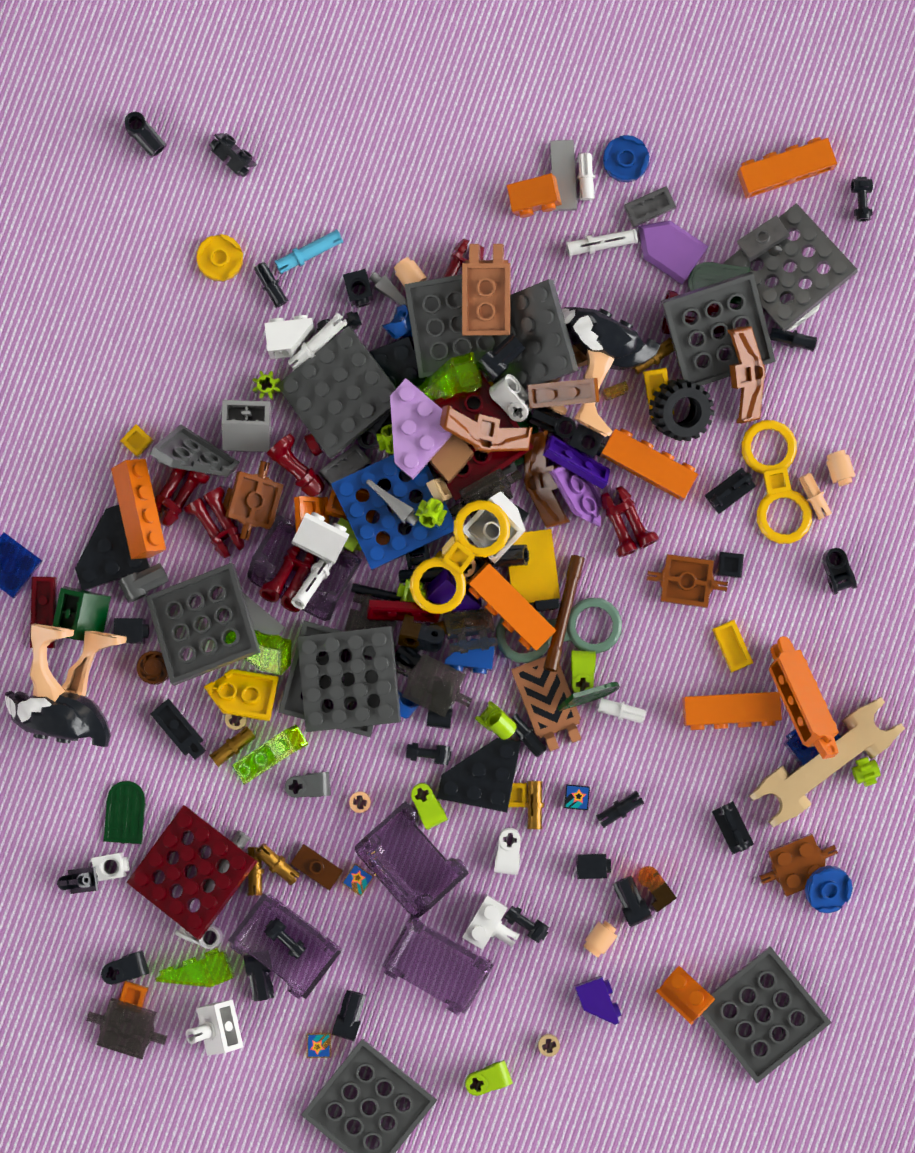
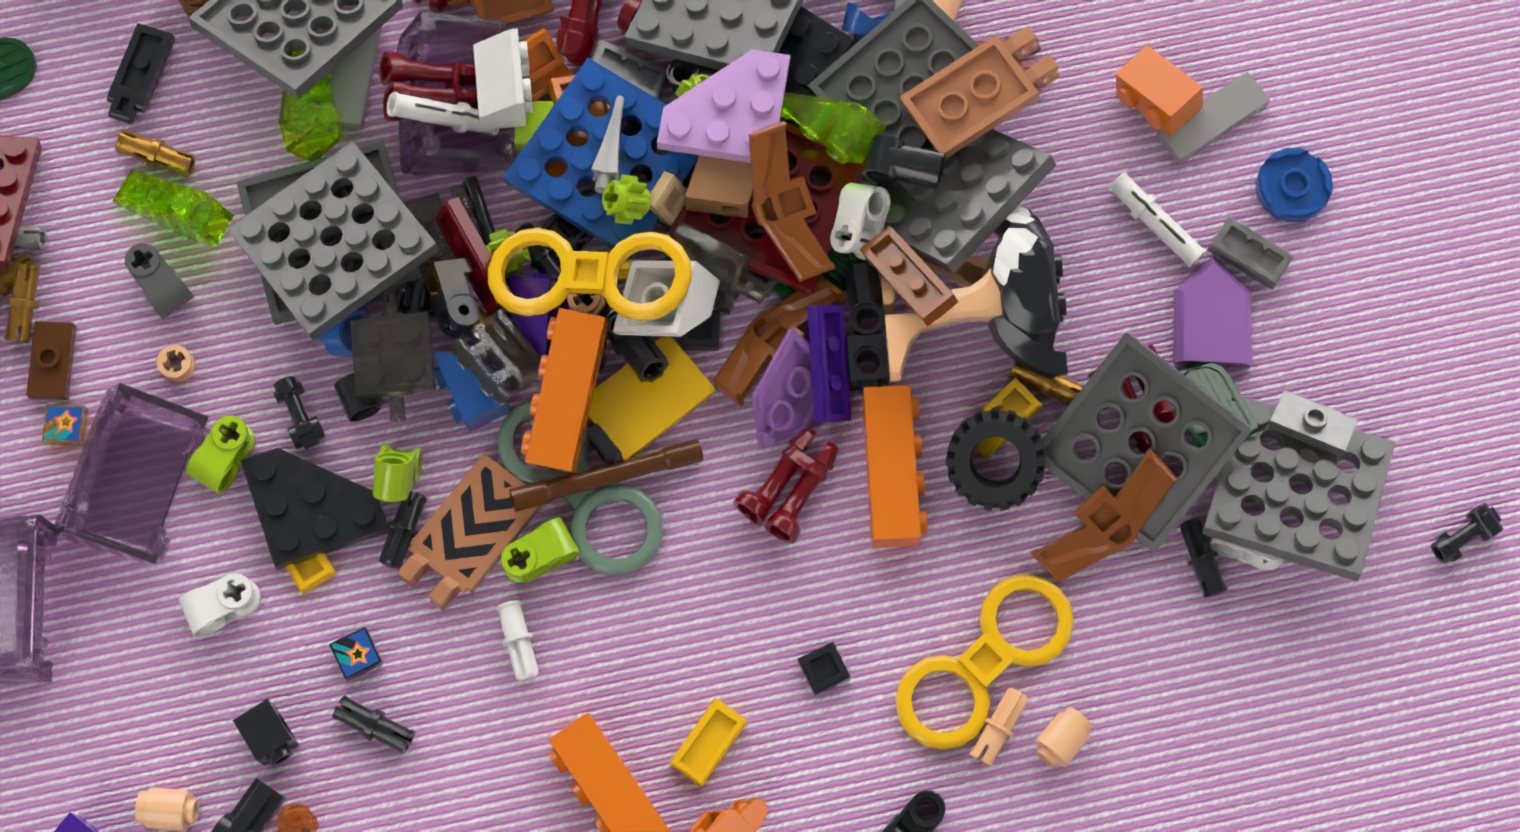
camera: 60 degrees right, 10 degrees down
(242, 722) = (197, 148): tan bush -> none
(244, 694) = (236, 127): yellow tile -> none
(487, 924) = (96, 634): white brick -> none
(534, 804) = (309, 601): pearl gold pin -> none
(536, 930) = (130, 713): black bar -> none
(586, 177) = (1231, 146): white axle -> none
(589, 695) = (508, 576): dark green window -> none
(615, 391) = (964, 359): clear yellow tile -> none
(687, 581) = (760, 619): dark orange plate -> none
(730, 490) = (929, 603): black hinge -> none
(787, 167) = (1436, 402): orange brick -> none

